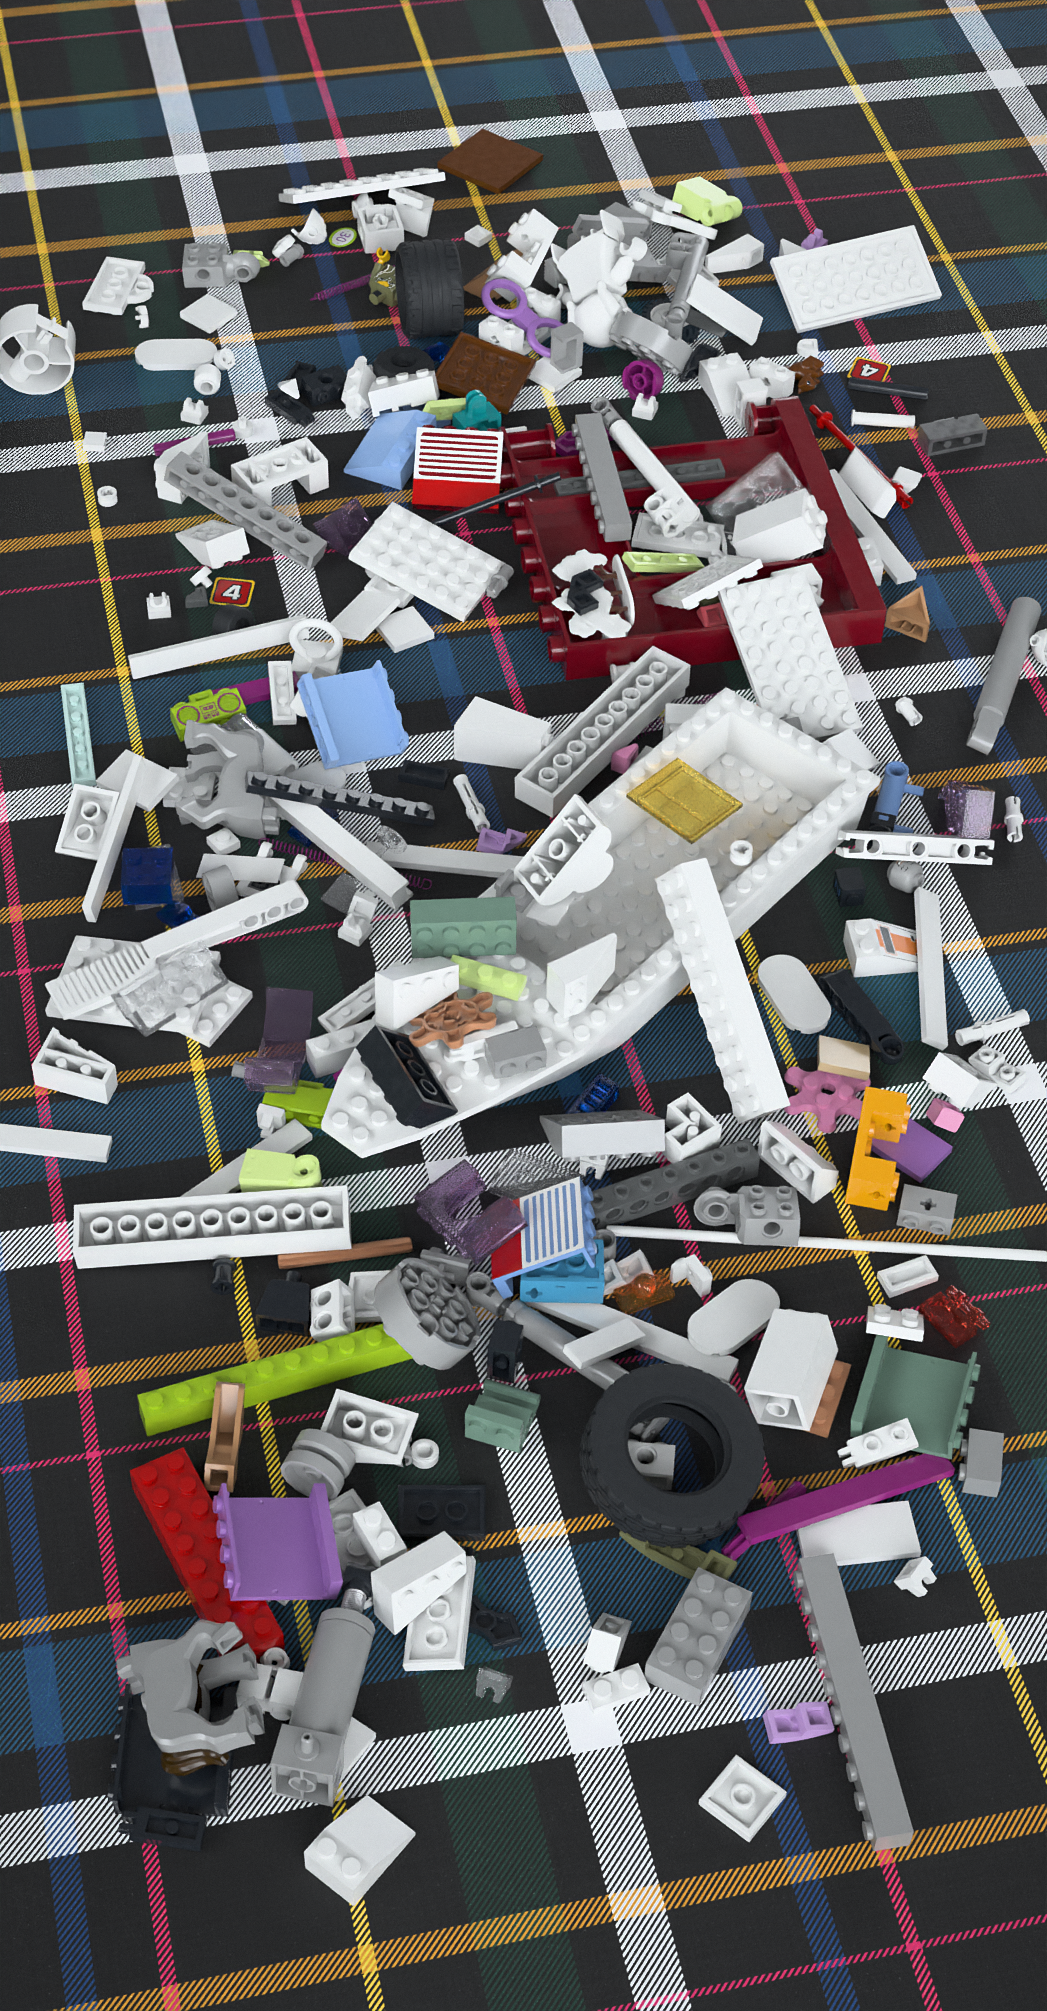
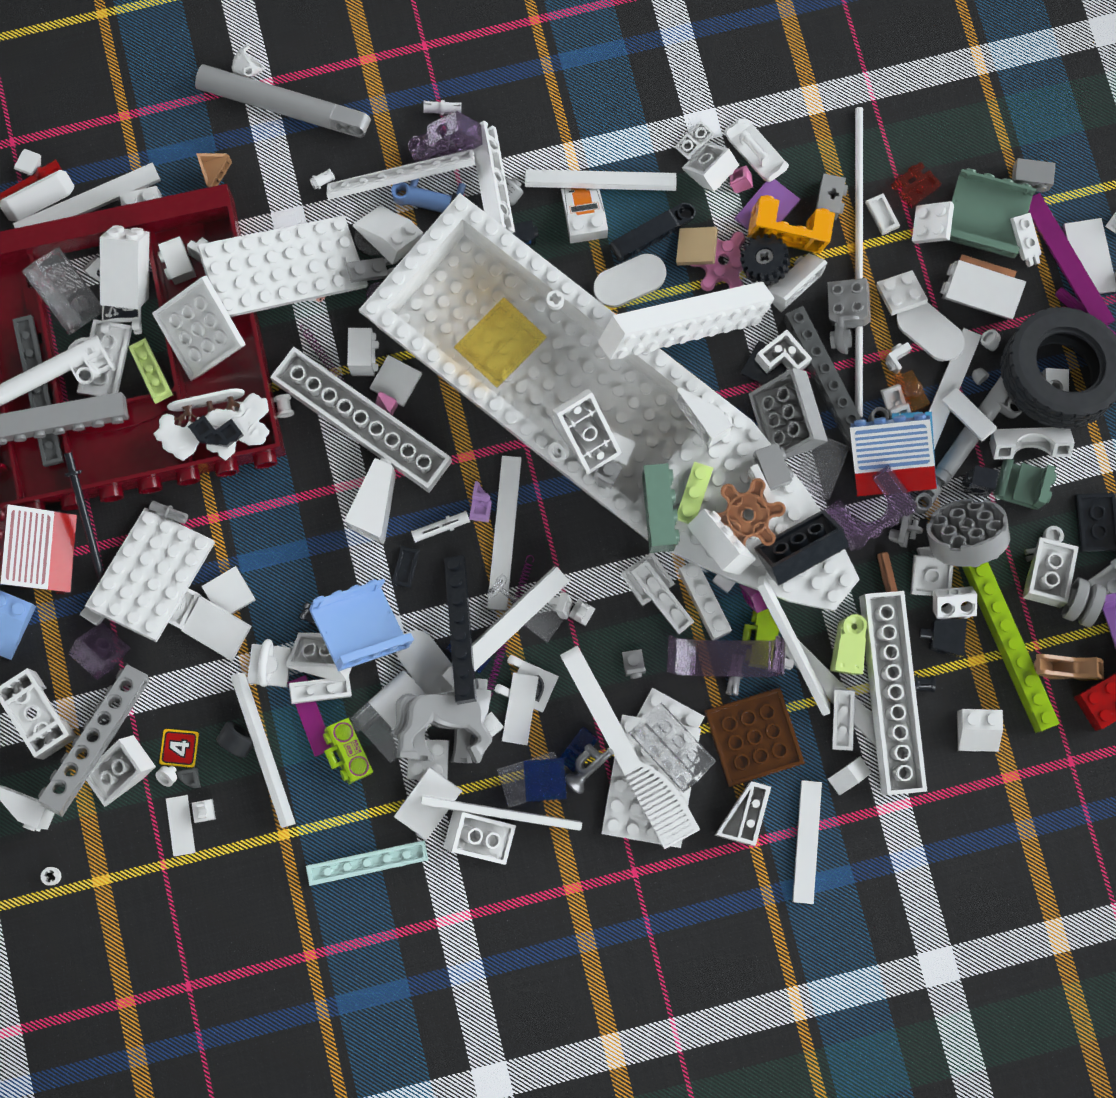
camera: 90 degrees left, 30 degrees up
(110, 1186) = (849, 775): none -> white slope
(141, 592) = (180, 825): none -> white sticker
(142, 910) = (576, 782): none -> flat silver piece
(152, 1336) = (979, 729): none -> white slope
(176, 1094) = (754, 737): none -> reddish brown tile
(184, 1179) = (843, 719): none -> white plate
(219, 887) = (551, 722): light grey beam -> none
(280, 1099) = (793, 644): none -> white tile
(284, 975) = (633, 663): none -> light grey bracket
(563, 1395) = (1053, 440): none -> white arch
(788, 1285) = (902, 292): none -> white plate
(824, 1118) = (766, 270): none -> black bush
(918, 771) = (400, 174): none -> white tile
(983, 1030) = (657, 140): white pin -> none
(991, 1132) = (756, 149): none -> white piece

